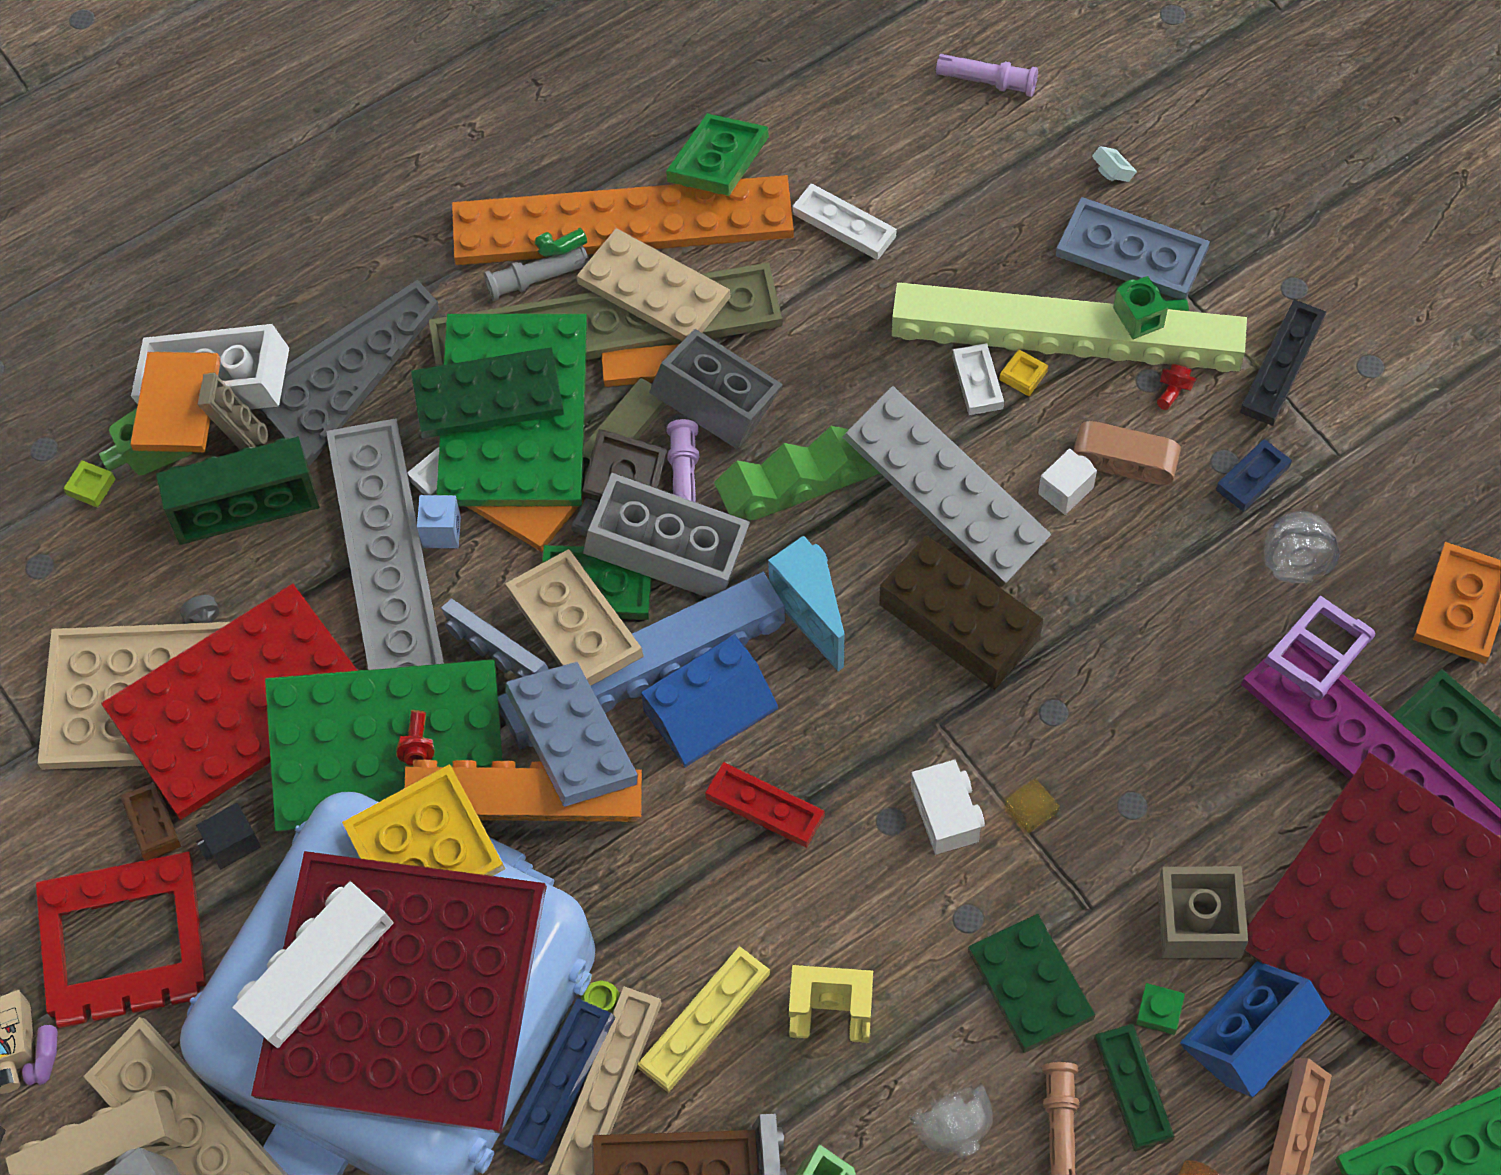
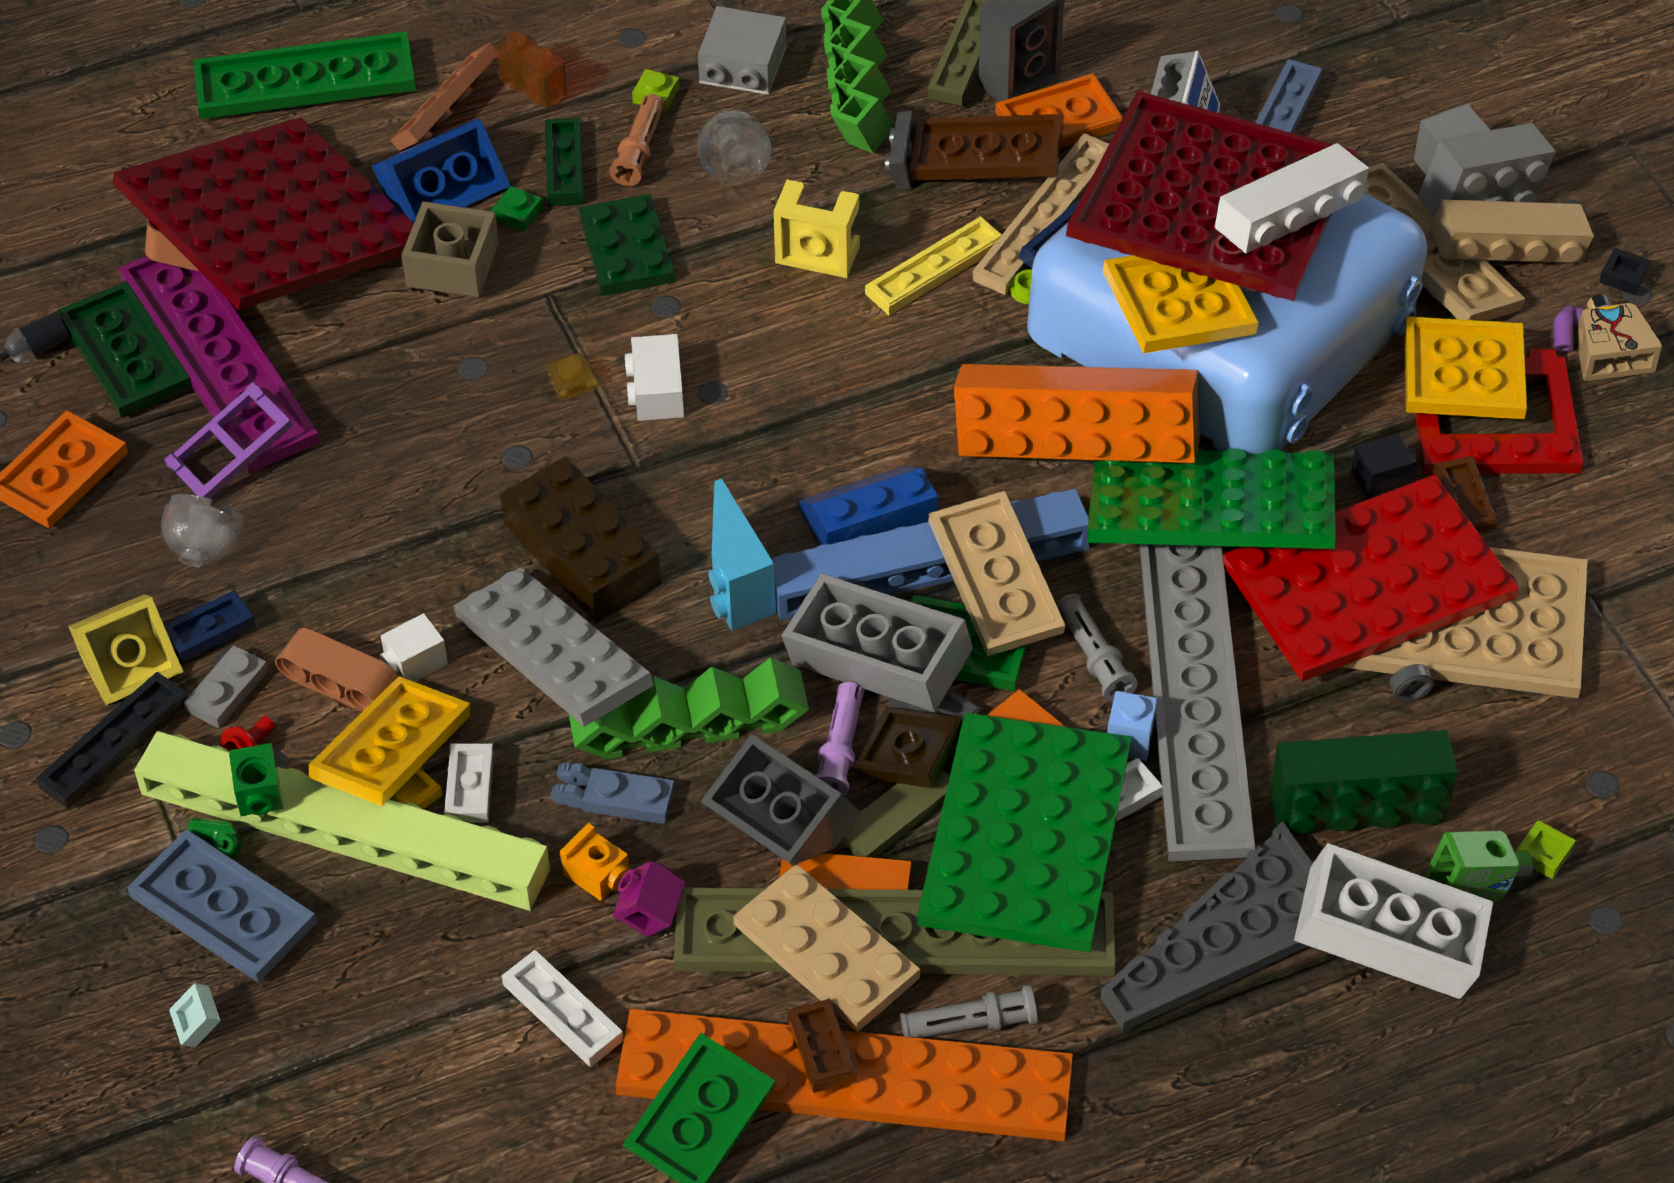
camera: 170 degrees left, 10 degrees down
(145, 957) = (1465, 368): none -> yellow plate
(168, 402) = (1433, 845): orange tile -> none
(230, 413) = (1377, 829): dark tan tile -> none
(414, 745) = (1179, 467): red plate -> none
(471, 585) = (1103, 660): none -> light grey pin
(487, 392) = (1055, 824): dark green plate -> none
(490, 641) = (1075, 557): sand blue plate -> none
(561, 246) = (934, 1021): green arm -> none
(571, 734) = (1019, 421): sand blue plate -> none
(639, 209) = (821, 1045): none -> reddish brown plate
(765, 804) = (834, 411): red plate -> none
(801, 301) = (648, 898): none -> magenta brick
(850, 398) = (614, 793): none -> sand blue hinge
(853, 331) = (594, 862): none -> light orange brick
(1051, 382) = (389, 741): none -> yellow plate
(1214, 431) = (226, 687): none -> light grey plate
(1318, 438) = (125, 647): none -> light yellow slope

